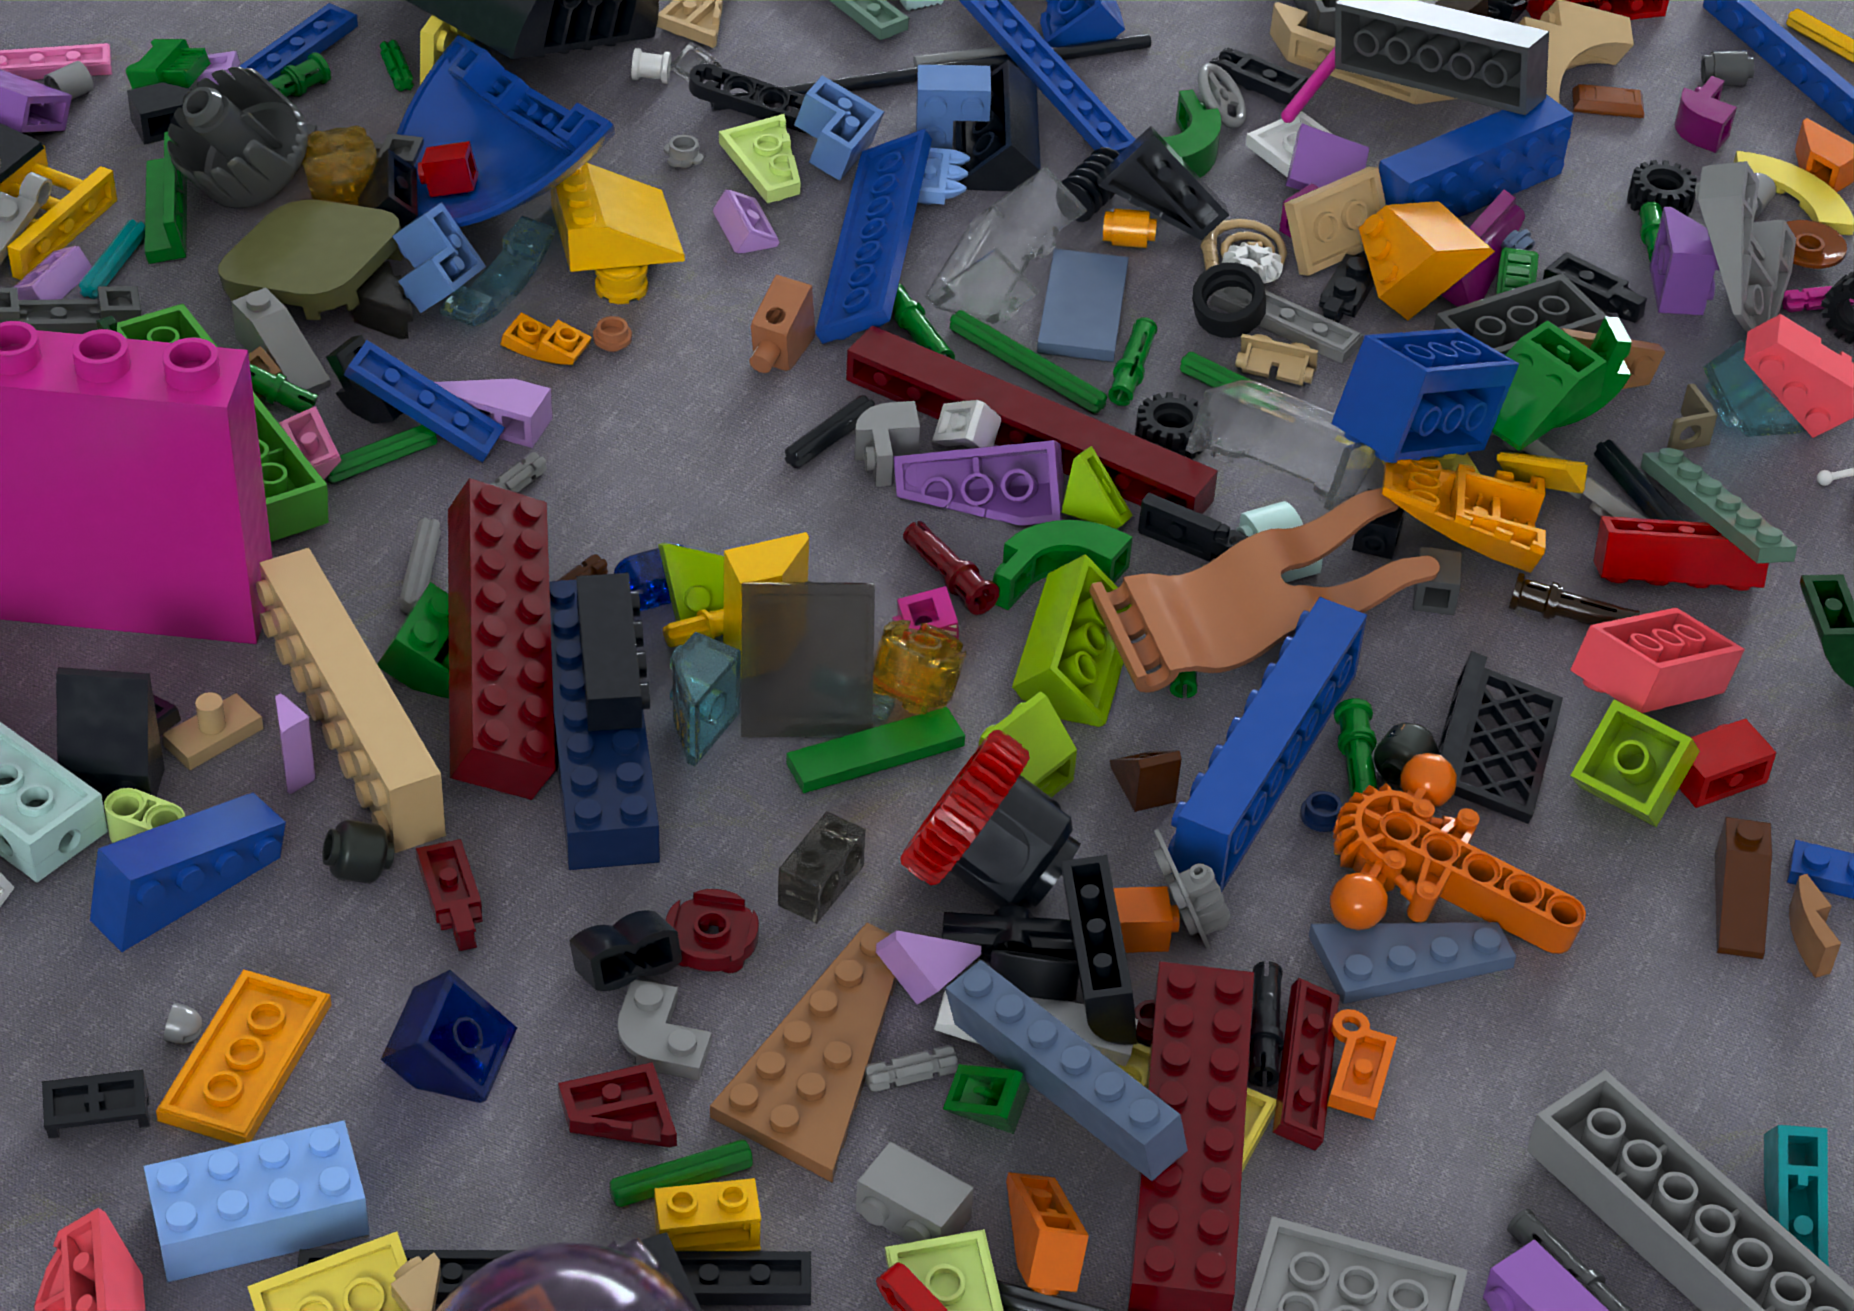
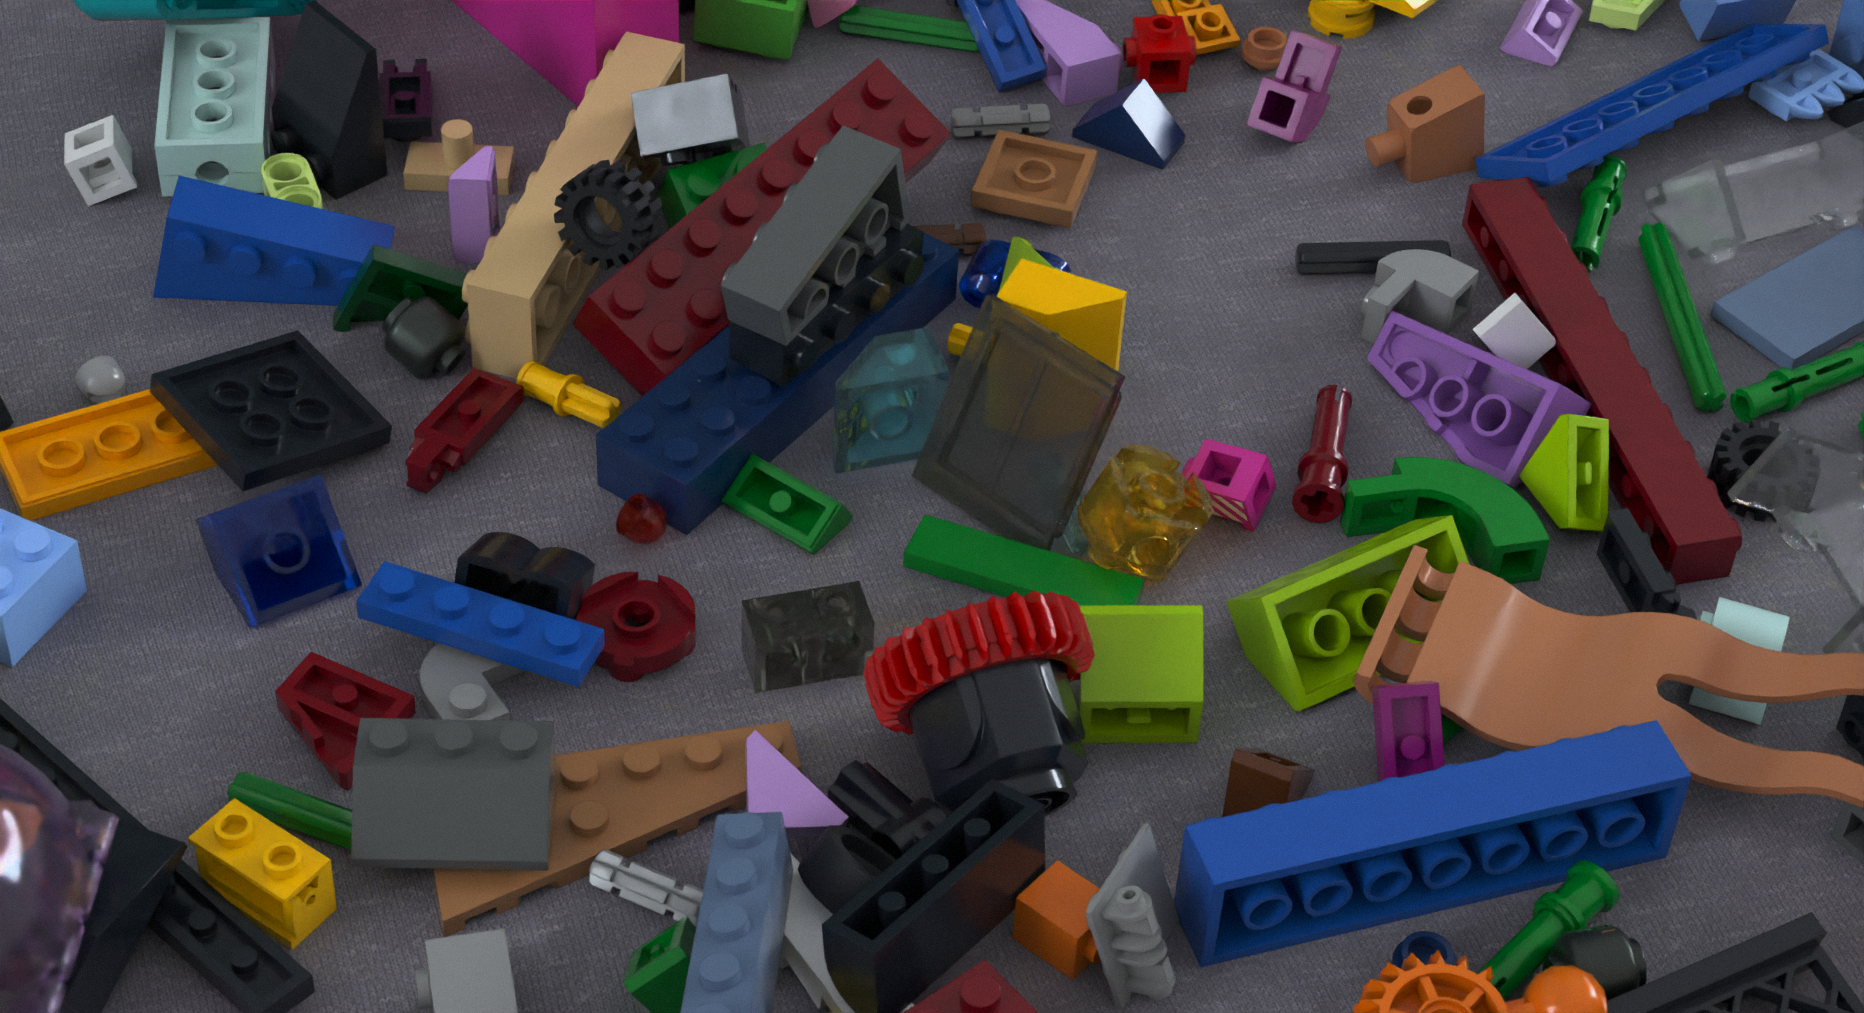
camera: 45 degrees right, 0 degrees up
(304, 831) = (390, 278): none -> dark green wing
(328, 962) = (270, 410): none -> black plate
(384, 590) = (690, 120): none -> wedge
(438, 707) = (587, 228): none -> black tyre
(492, 825) = (568, 394): none -> yellow axle
(568, 374) = (1160, 52): none -> red brick
(586, 505) = (1034, 178): none -> medium nougat plate
(594, 434) = (1132, 125): none -> dark blue slope
(600, 613) = (818, 236): none -> dark grey wedge
(629, 864) = (641, 520): none -> clear red hinge
(638, 992) = (481, 623): none -> blue plate
(672, 349) = (1297, 95): none -> magenta brick
(700, 802) = (786, 505): none -> green slope
(768, 1093) = (453, 794): none -> dark grey slope
(1197, 700) = (1407, 728): none -> magenta plate

